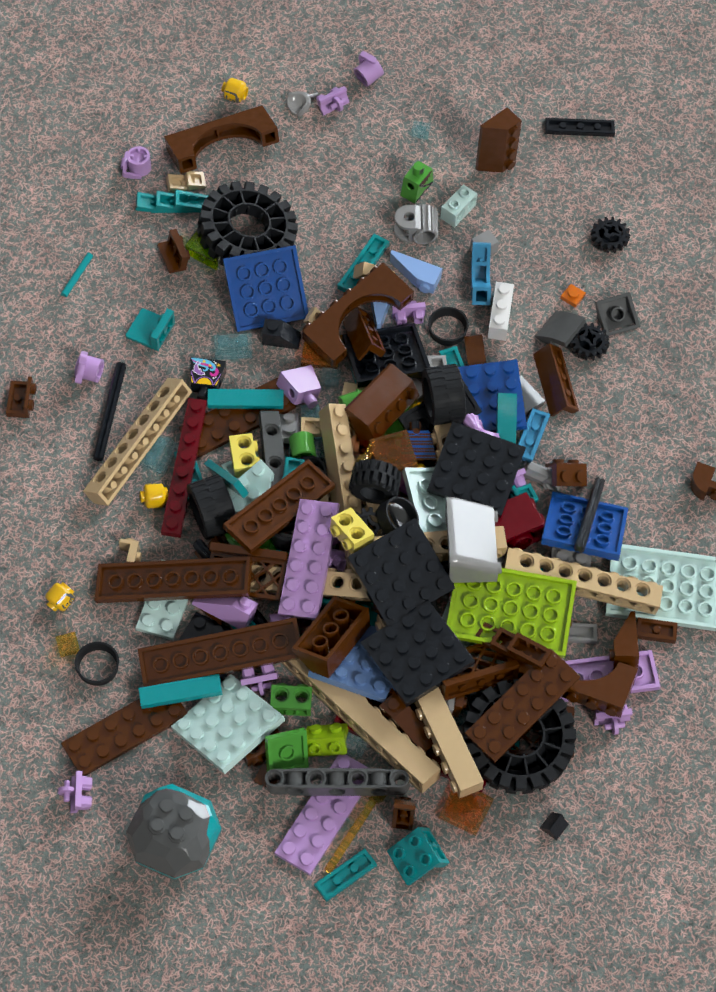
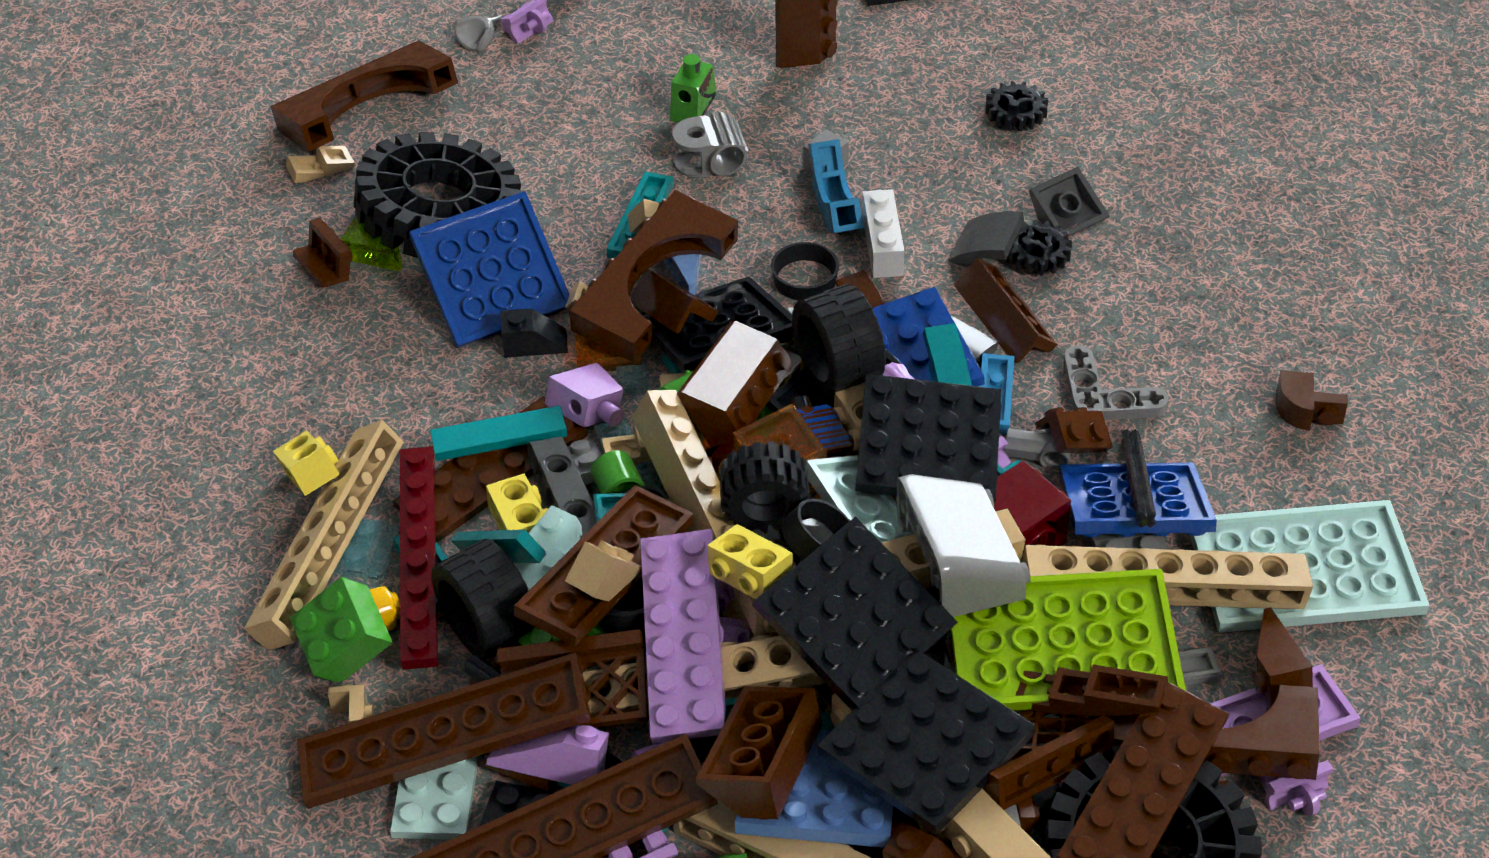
camera: 10 degrees left, 15 degrees down
(20, 398) = (102, 513): reddish brown bracket -> none
(59, 597) = (237, 809): yellow head -> none
(73, 280) = (165, 320): teal bar -> none
(88, 368) = (214, 443): lavender piece -> none
(109, 411) = (264, 505): black axle -> none
(133, 506) = (340, 630): none -> bright green brick
(136, 394) = (307, 462): none -> light yellow brick
(137, 161) = (236, 151): lavender piece -> none
(151, 328) = (311, 369): teal bracket -> none
(170, 203) = (294, 195): teal slope -> none
(206, 375) = (419, 411): torso -> none
(233, 346) = (456, 369): clear light blue plate -> none
(235, 90) = (369, 33): yellow head -> none
(274, 515) = (602, 570): none -> tan slope
(413, 309) = (737, 260): lavender hips -> none
(419, 273) = (747, 206): light blue slope -> none
(420, 130) = (676, 33): clear light blue tile -> none
(458, 205) = (767, 111): light aqua brick -> none
(573, 295) = (988, 195): orange plate -> none
(592, 453) = (1103, 399): none -> light grey beam
(656, 630) = (1321, 633): reddish brown plate -> none

